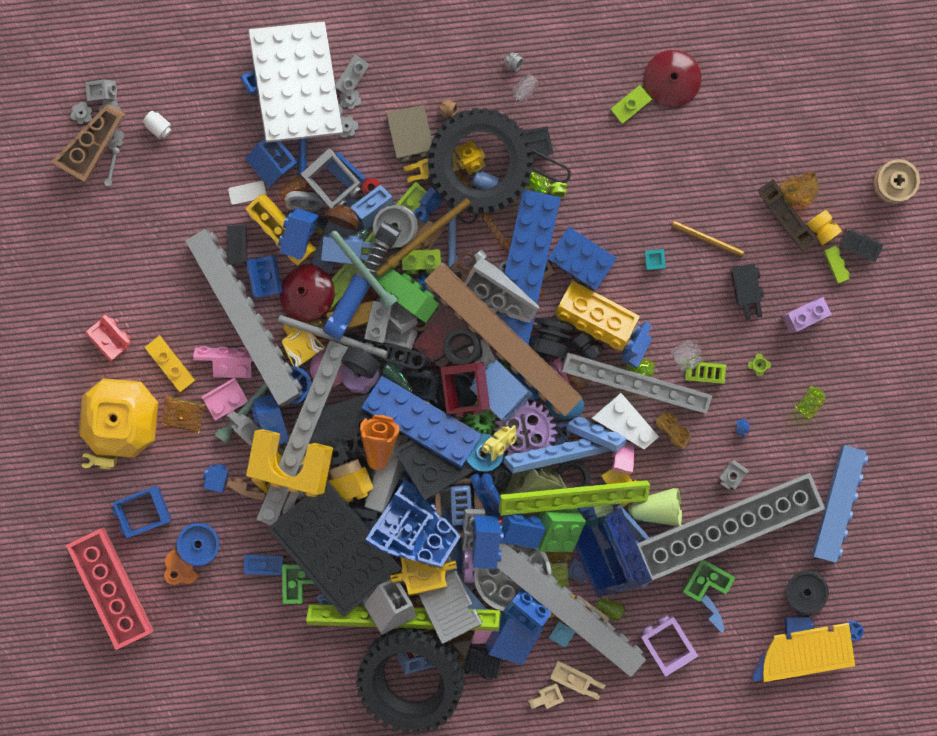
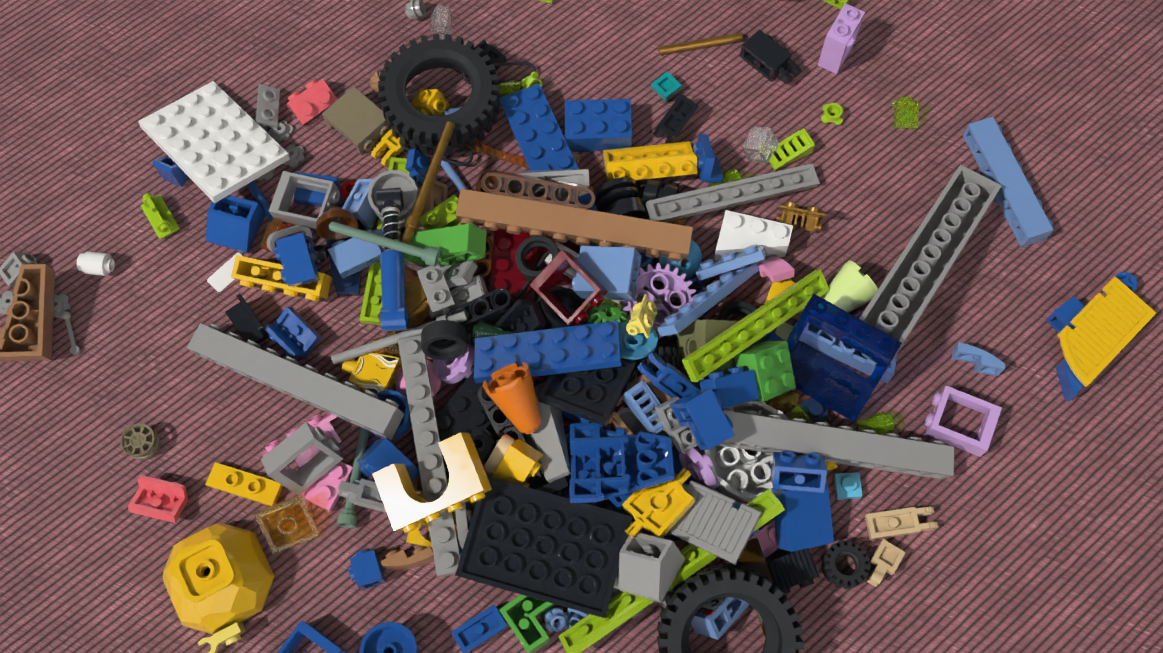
camera: 30 degrees left, 20 degrees down
(117, 286) = (141, 442): none -> dark tan wheel
(217, 379) = (294, 445): none -> light grey window
(222, 114) = (159, 215): none -> lime hinge
(313, 592) = (552, 614): none -> medium blue plate
(316, 298) = (355, 327): dark red dish -> none
(386, 90) = (311, 101): none -> coral bracket
(497, 309) = (527, 192): none -> reddish brown beam
(521, 670) = (853, 551): none -> black tyre
(641, 292) = (675, 118): none -> black hinge
(704, 575) = (942, 327): bright green brick -> none
(735, 467) = (884, 215): light grey brick -> none
(743, 427) = (863, 173): blue plate -> none
(803, 604) = (1051, 276): black wheel -> none

